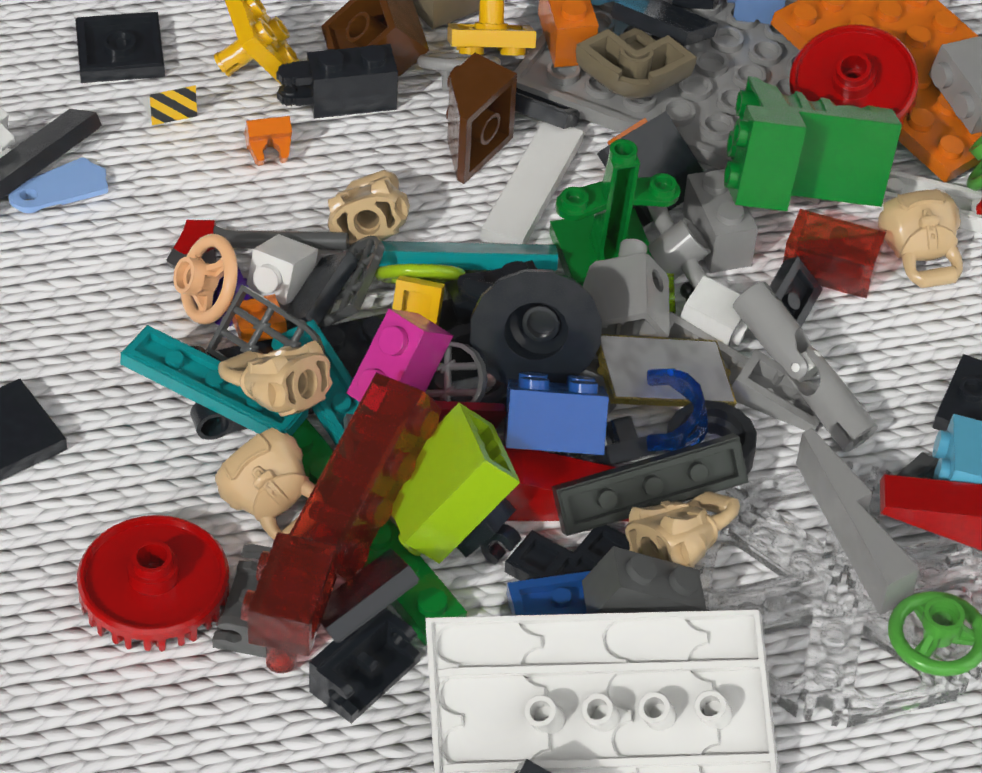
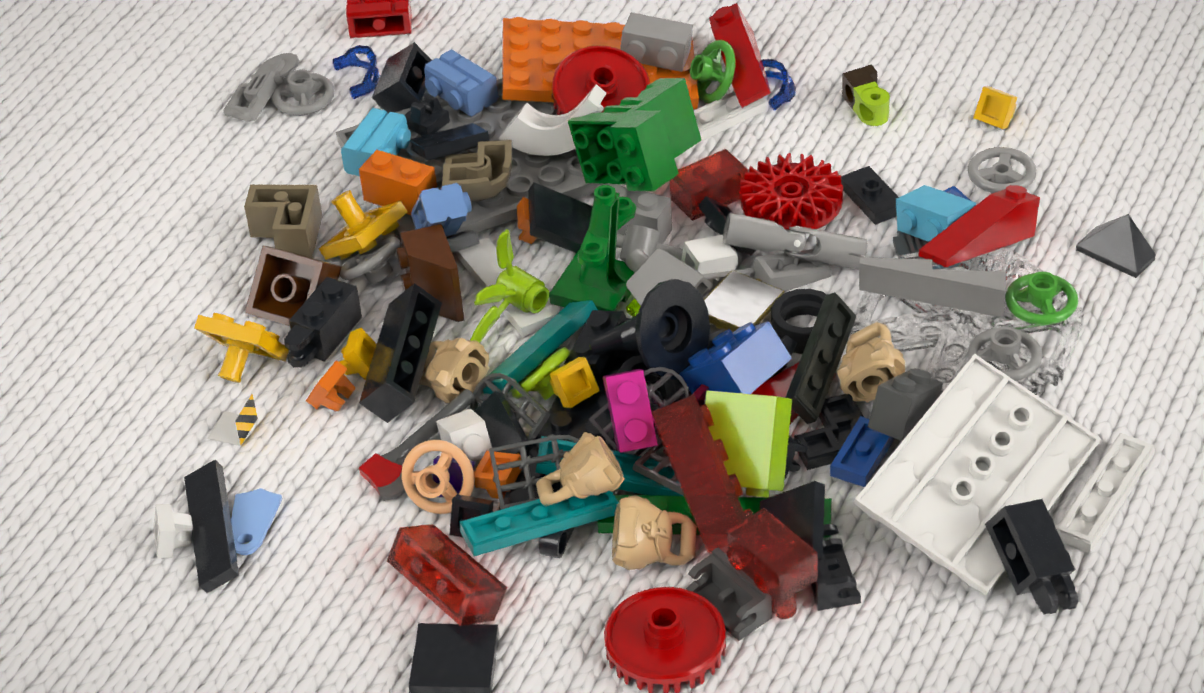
camera: 45 degrees left, 5 degrees down
(88, 361) = (446, 574): none -> clear red brick
(119, 47) = (147, 424): black tile -> none
(189, 327) = (466, 508): none -> black tile
(332, 133) = (358, 353): none -> yellow tile
(351, 157) = (400, 353): none -> black brick
(517, 185) = (512, 286): none -> lime plant
(544, 66) = (442, 206): none -> medium blue brick
(692, 391) = (798, 301): clear blue helmet -> none
(750, 57) = (545, 133): none -> white arch
(818, 636) = (1005, 350): none -> light grey piece
(879, 326) = (792, 192): none -> red wheel
(924, 229) = (733, 132): tan piece -> none

